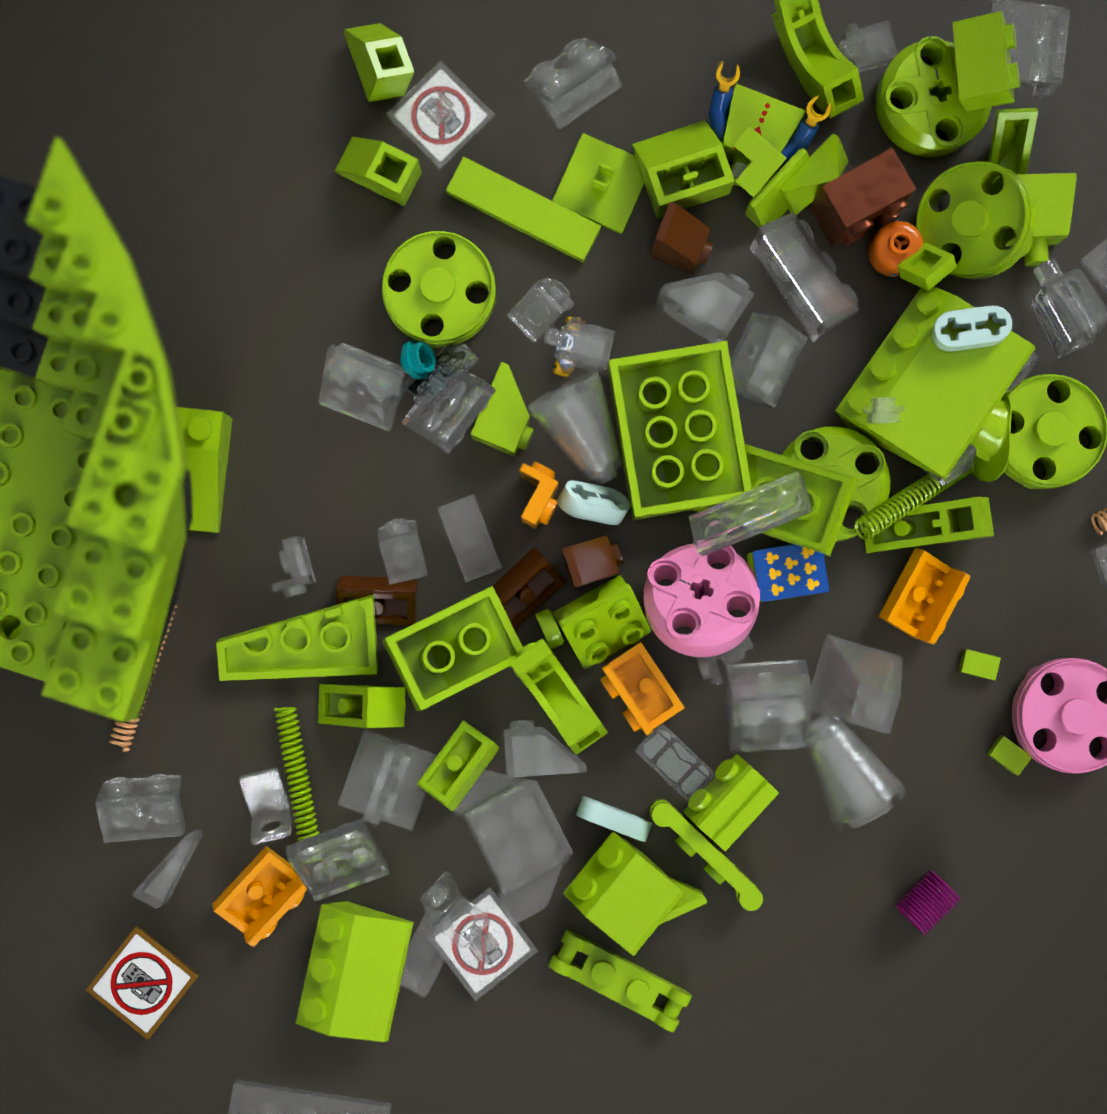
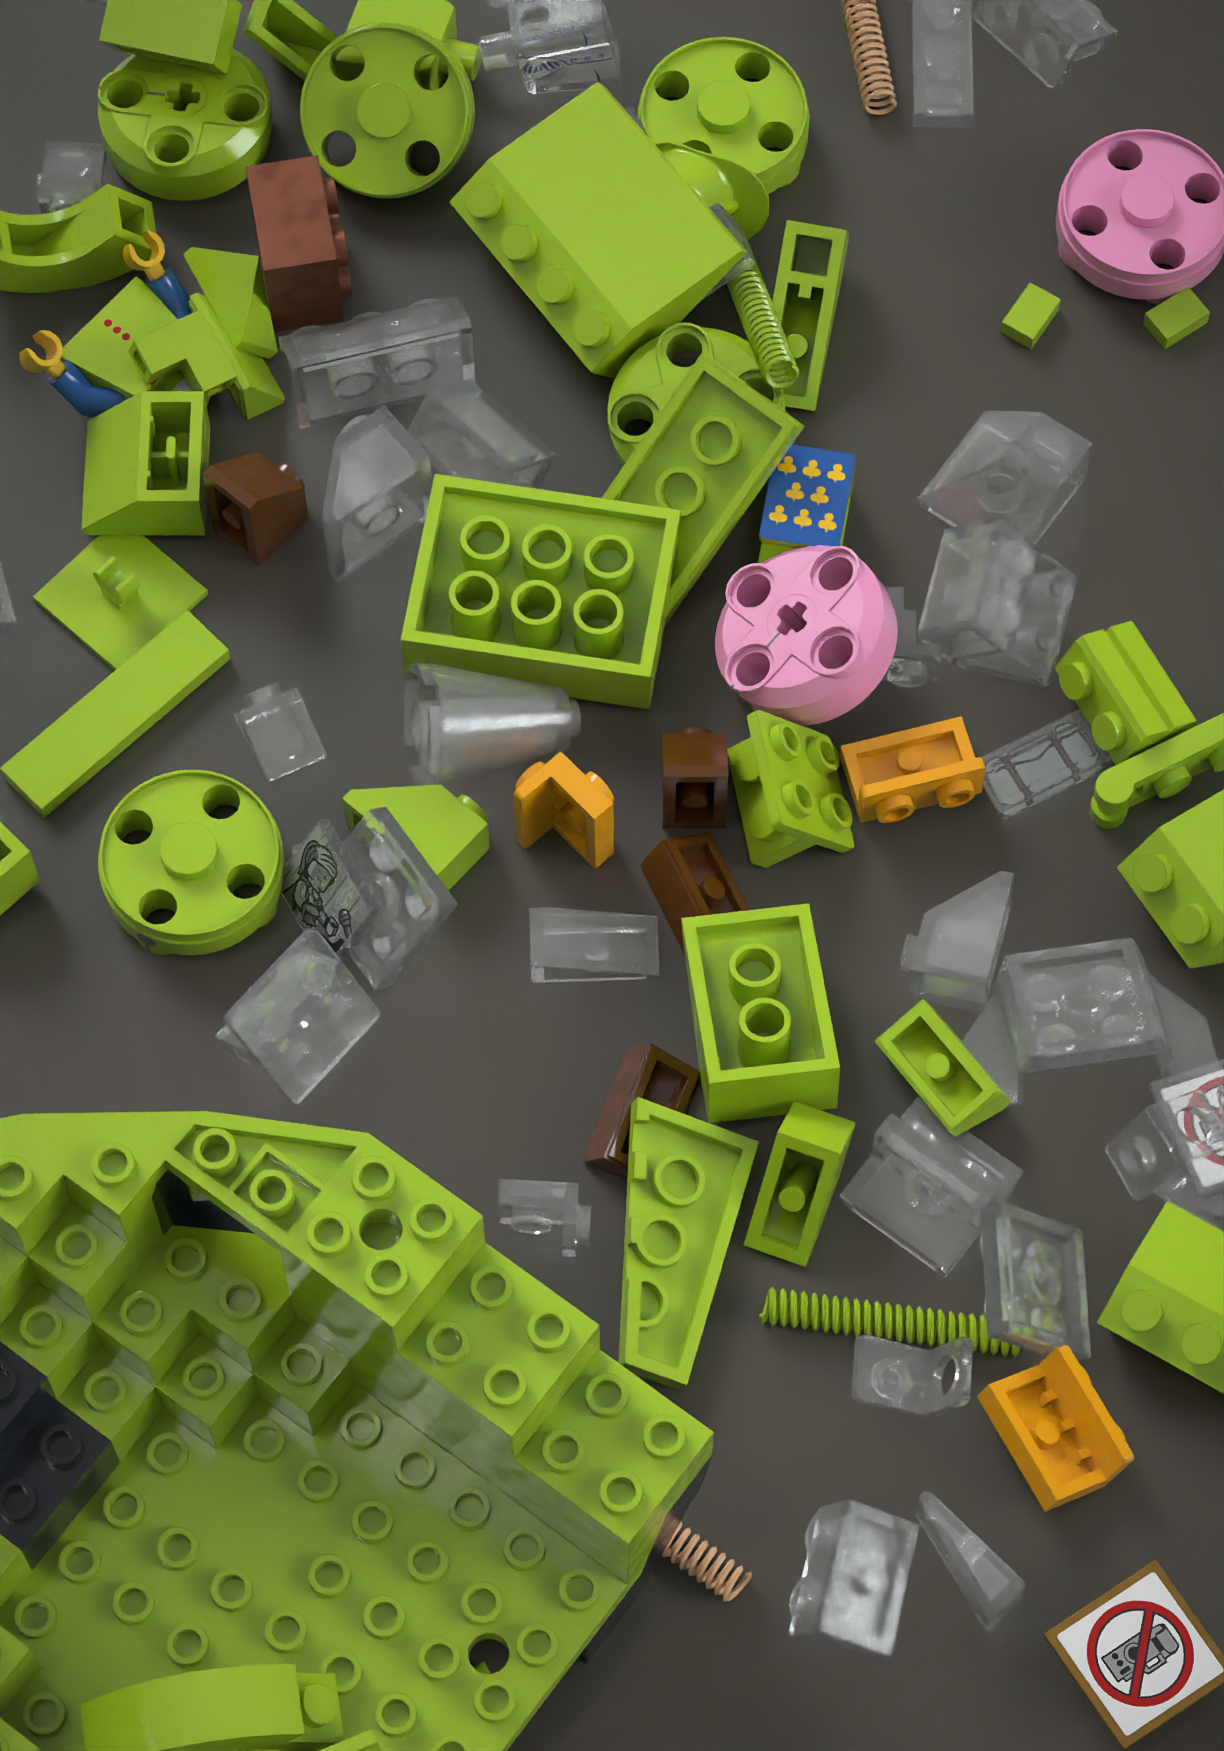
camera: 70 degrees left, 20 degrees down
(402, 550) = (577, 1045): clear bracket -> none
(417, 359) = (285, 922): teal plate -> none
(550, 628) = (774, 871): lime tile -> none
(558, 695) = (881, 885): lime arch -> none
(580, 346) = (361, 689): clear piece -> none
(593, 502) = (608, 738): light aqua beam -> none
(614, 819) = (1096, 871): light aqua beam -> none
(750, 513) = (704, 515): clear plate -> none
(849, 774) = (1134, 516): clear cone -> none
(882, 249) = (384, 229): orange head -> none
(883, 410) = (619, 290): clear plate -> none
(924, 597) = (908, 348): light orange bracket -> none
(927, 266) = (429, 186): lime plate -> none
(970, 319) = (531, 146): light aqua beam -> none

